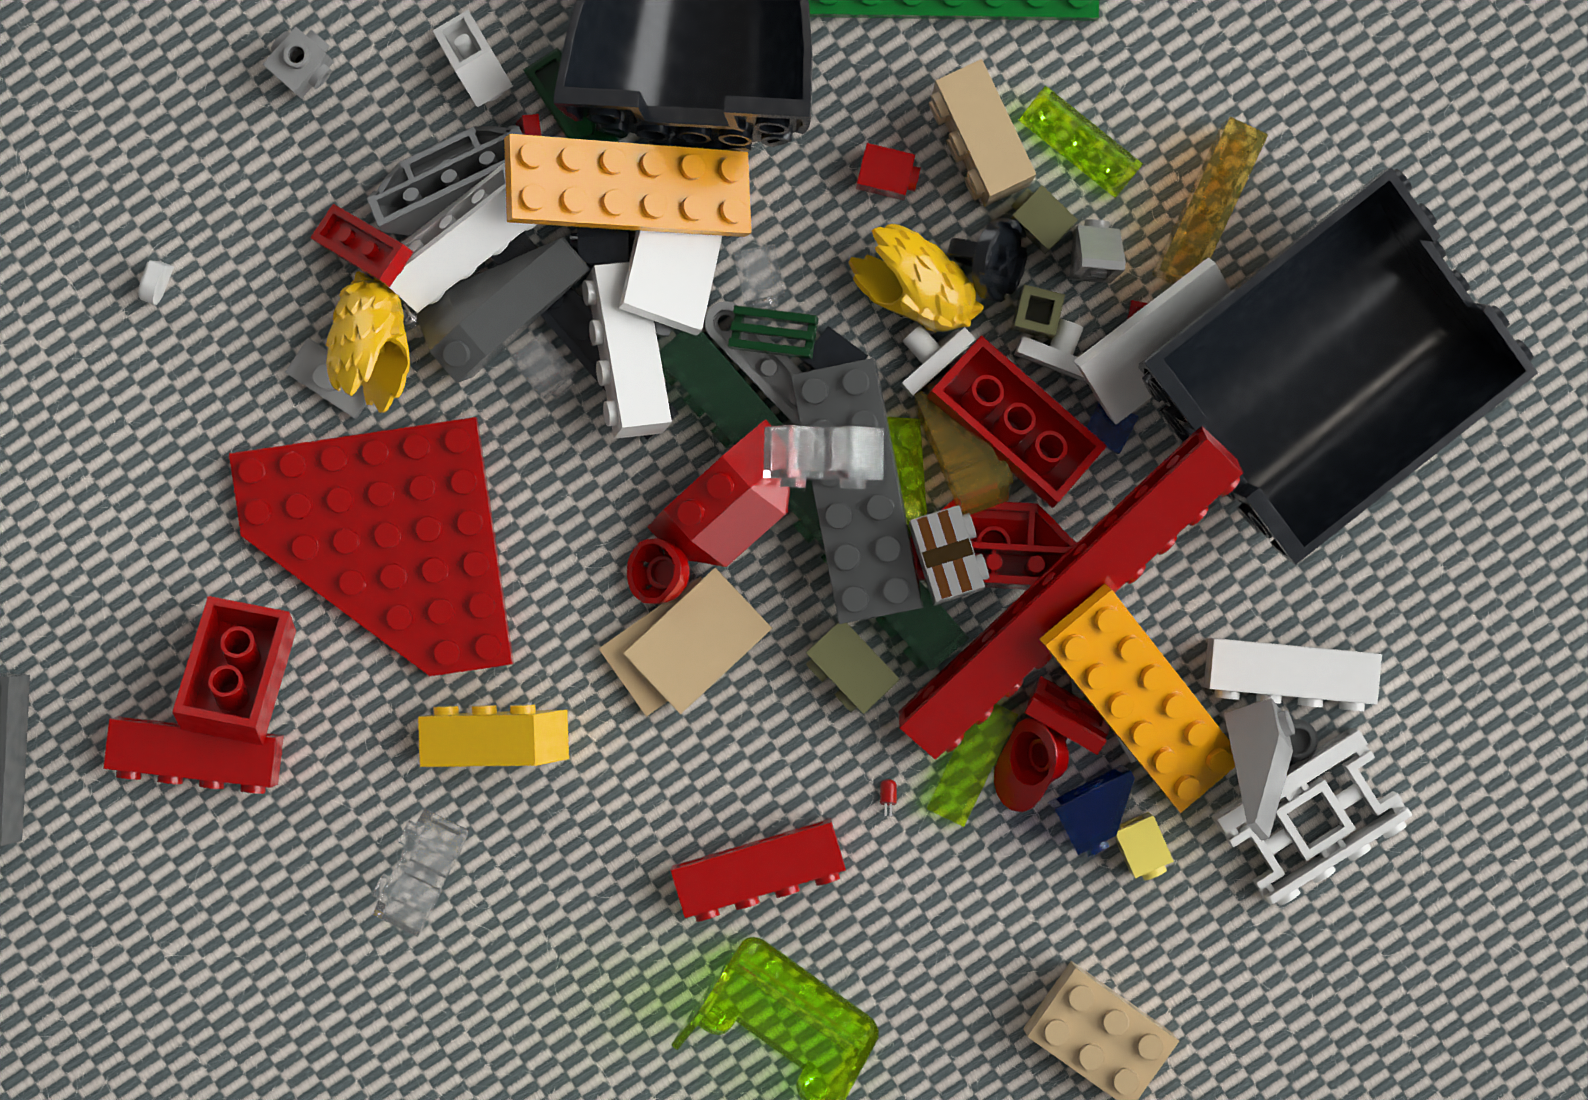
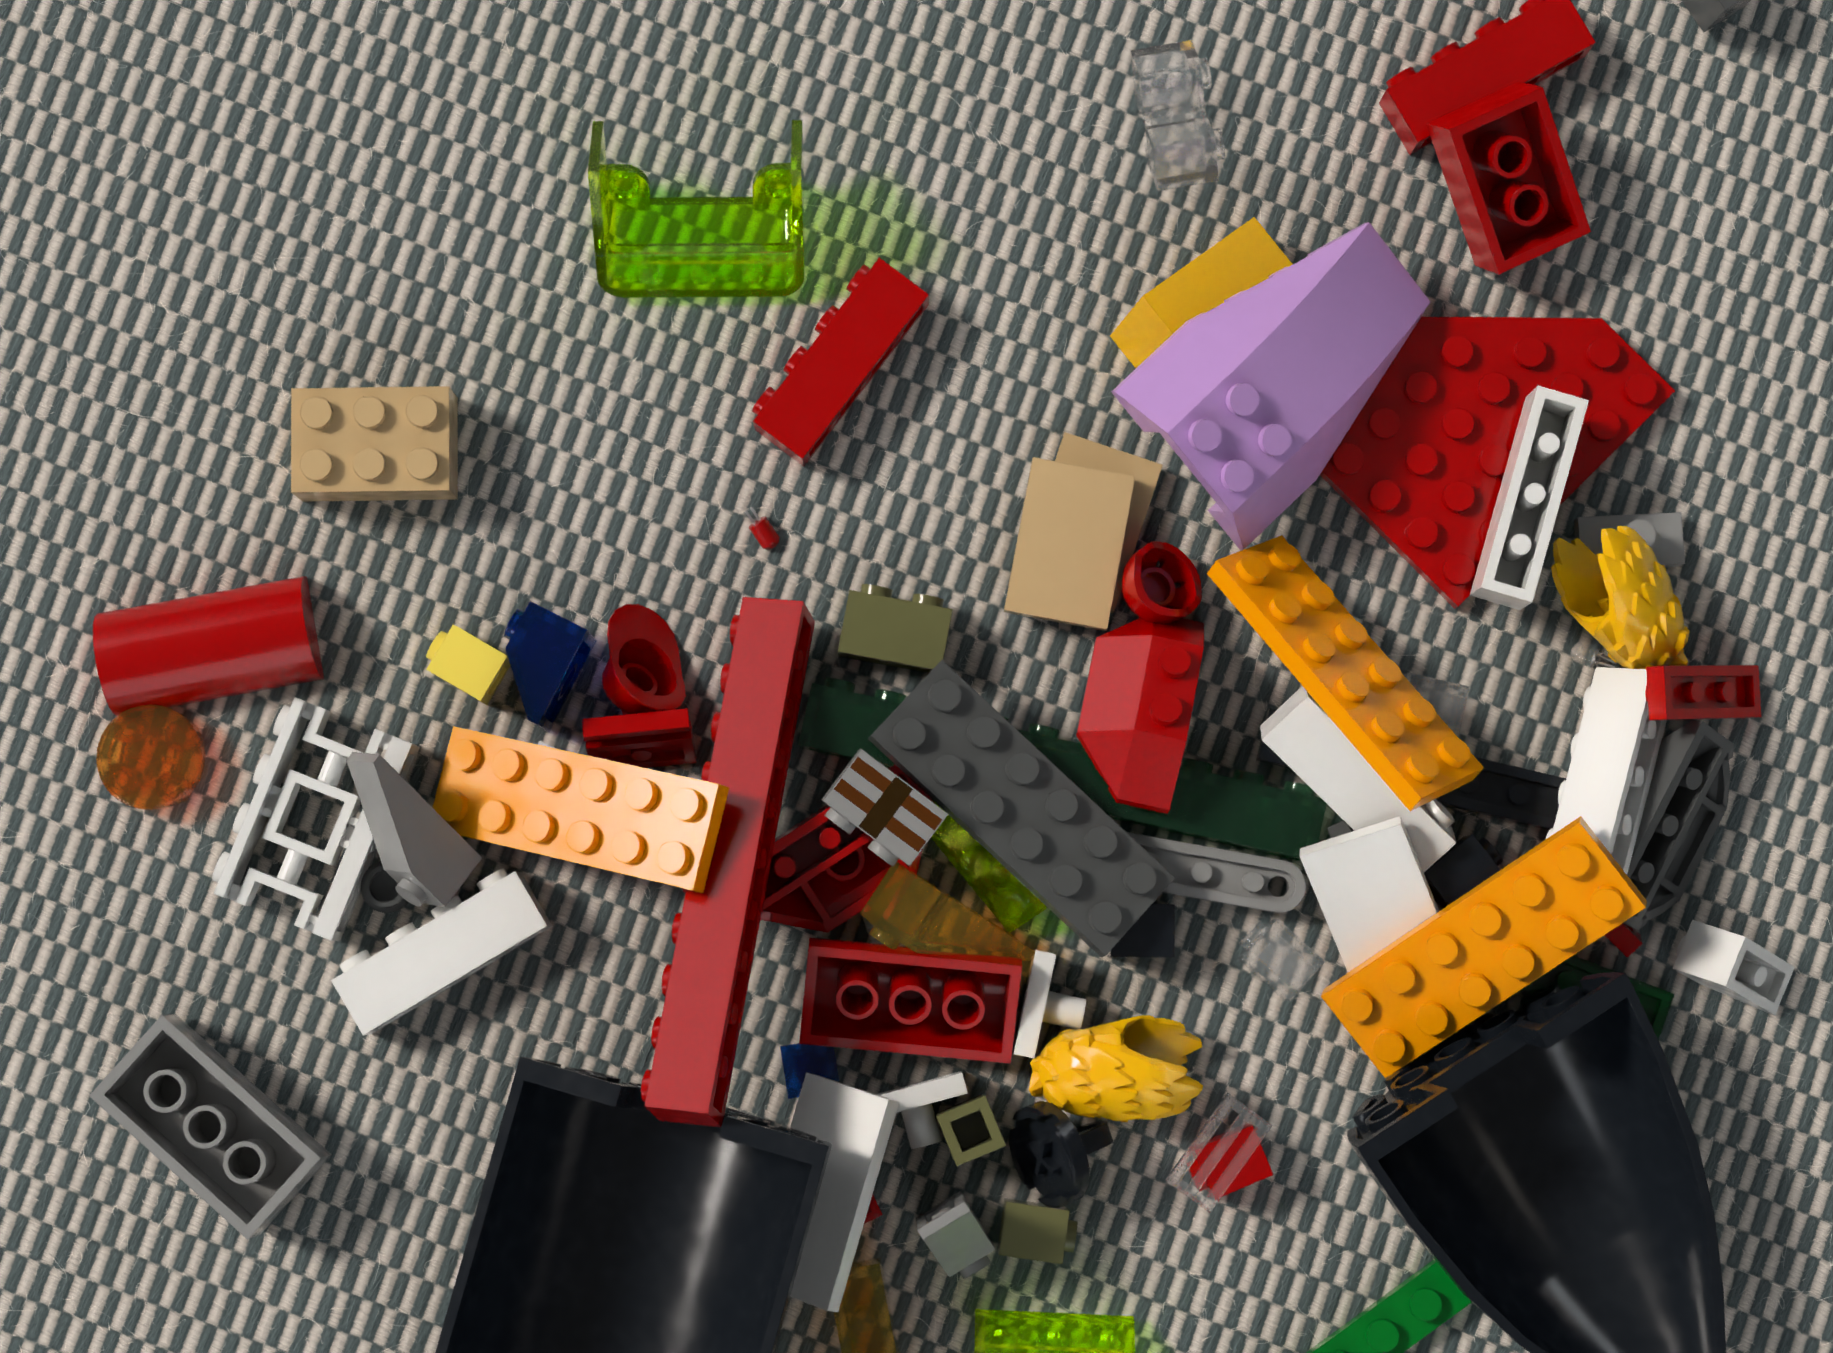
camera: 135 degrees right, 5 degrees down
(380, 451) = (1529, 498): none -> white brick
(484, 650) = (1277, 376): none -> lavender wedge
(496, 306) = (1522, 729): dark grey wedge -> none
(584, 426) = (1345, 672): none -> light orange plate
(739, 327) = (1263, 889): dark green tile -> none
(823, 454) = (1084, 817): clear brick -> none
(857, 192) = (1192, 1189): none -> clear tile
(970, 766) = (700, 620): clear neon green plate -> none
(981, 134) = (1163, 1270): tan brick -> none
(1302, 981) = (207, 646): none -> red brick
(1389, 934) = (151, 757): none -> clear orange tile
(1519, 668) = (210, 1125): none -> light grey brick

